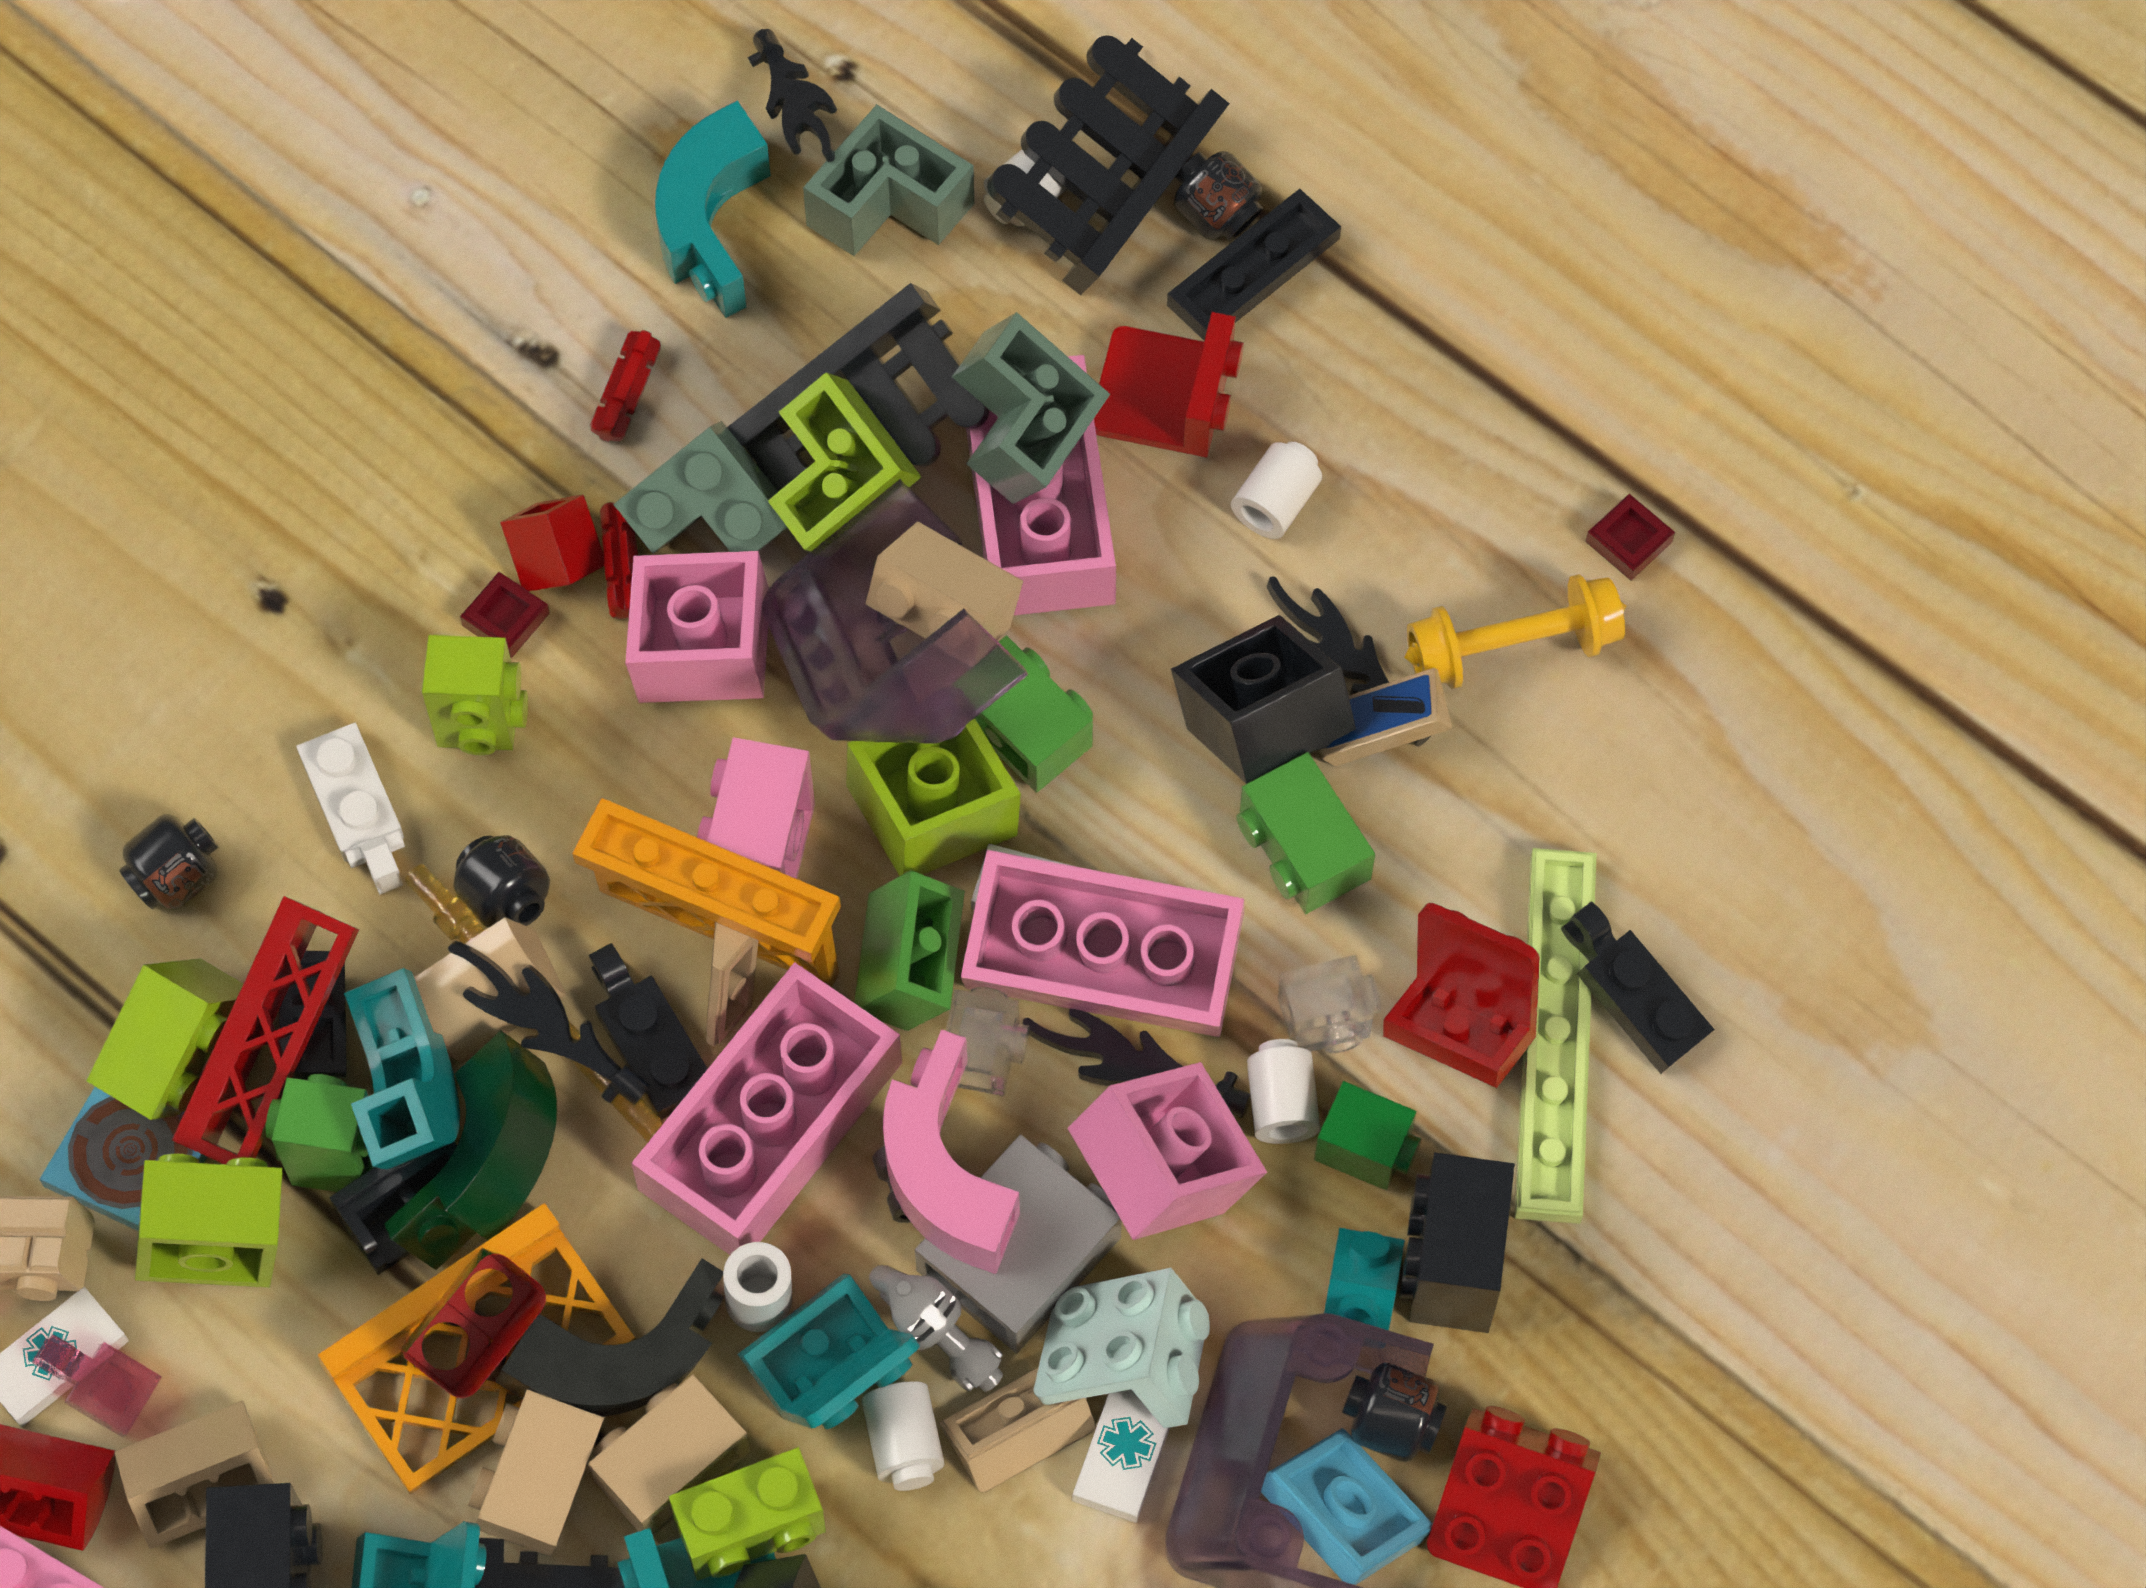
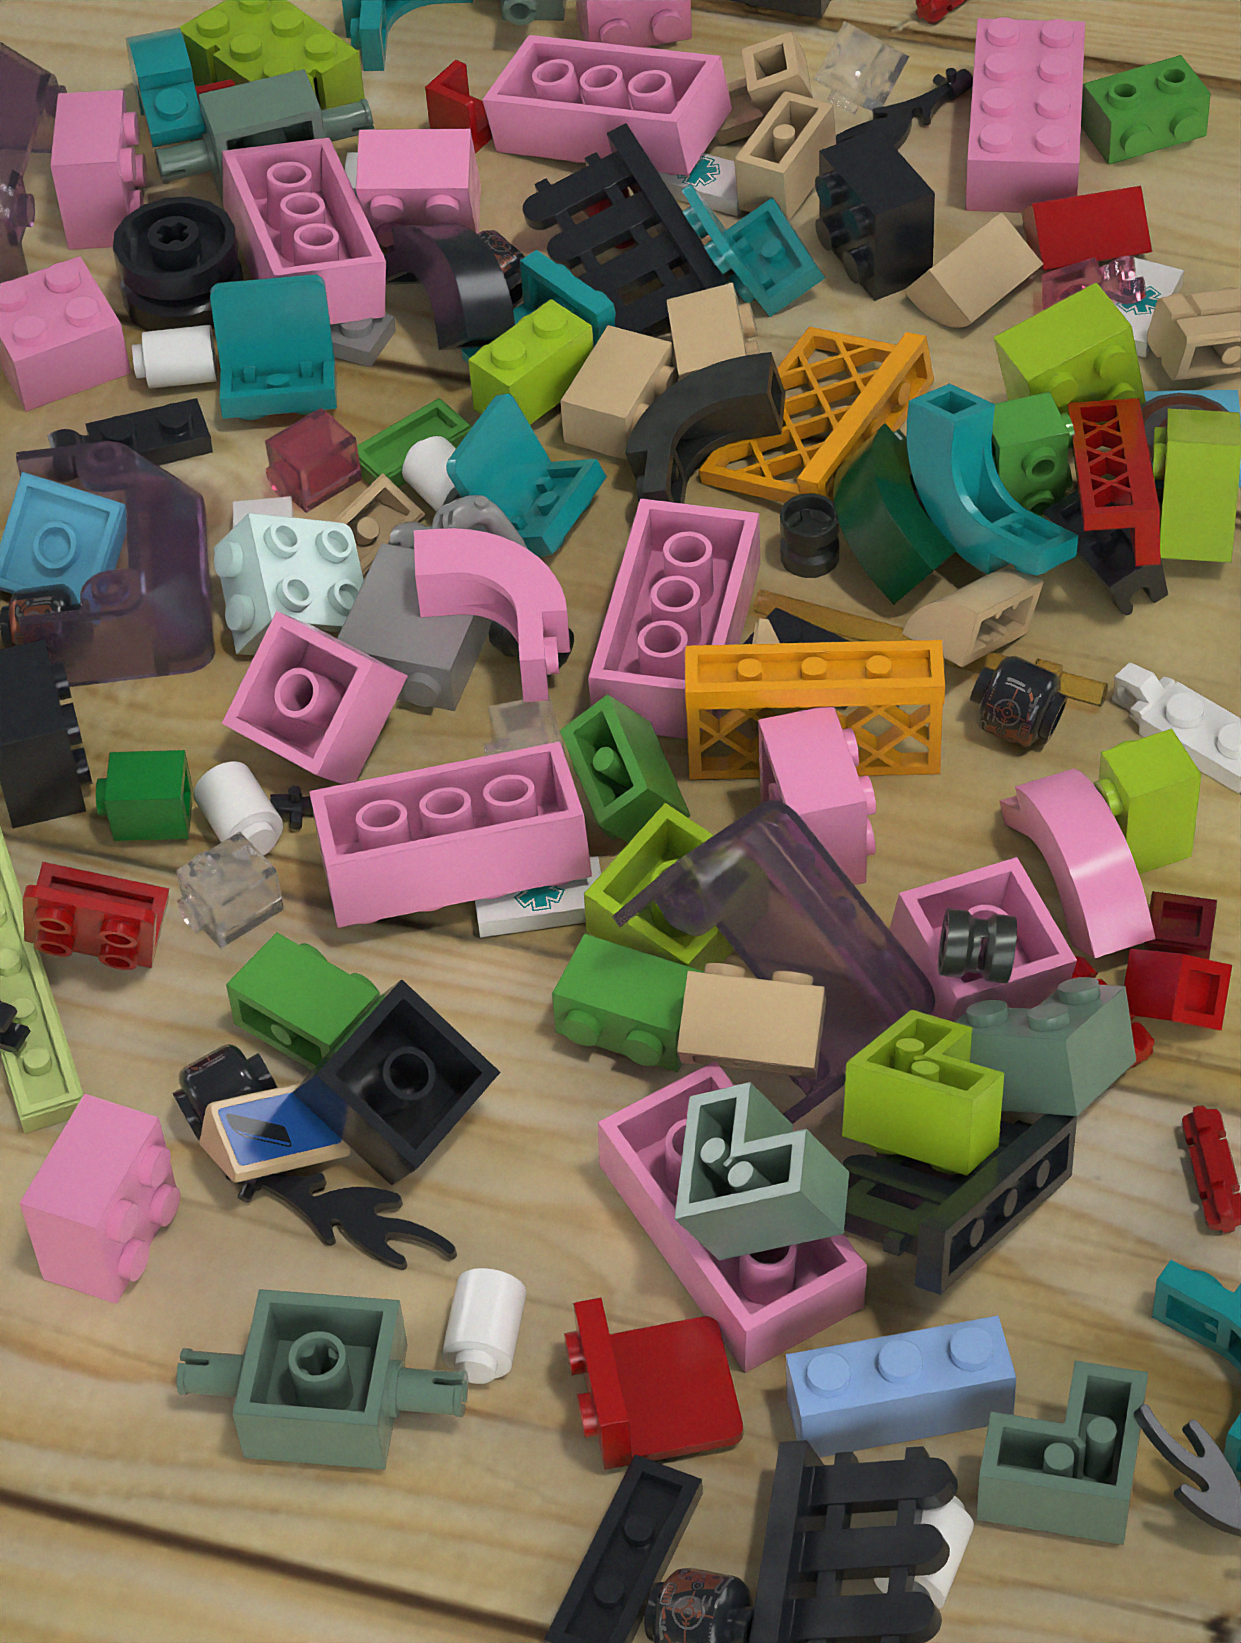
camera: 160 degrees right, 15 degrees down
(504, 1329) = (816, 380): red piece -> none
(545, 1013) = (899, 591): black piece -> none
(554, 691) = (1087, 860): none -> bright pink arch
(577, 1164) = (809, 535): none -> pearl dark grey wheel
(723, 559) = (962, 941): none -> pearl dark grey wheel
(757, 1286) = (610, 504): white brick -> none
(912, 1525) = (388, 448): none -> bright green tile
(985, 289) = (900, 1386): none -> light blue brick
(1032, 1527) = (312, 460): none -> clear pink brick
(1364, 1277) = (111, 713): teal bracket -> none
(1410, 785) = (218, 1077): none -> black head
(1429, 480) = (322, 1380): none -> sand green brick
(1555, 699) = (101, 1199): none -> bright pink brick
(1592, 613) = (245, 1223): yellow piece -> none
(1630, 537) = (89, 1450): dark red tile -> none

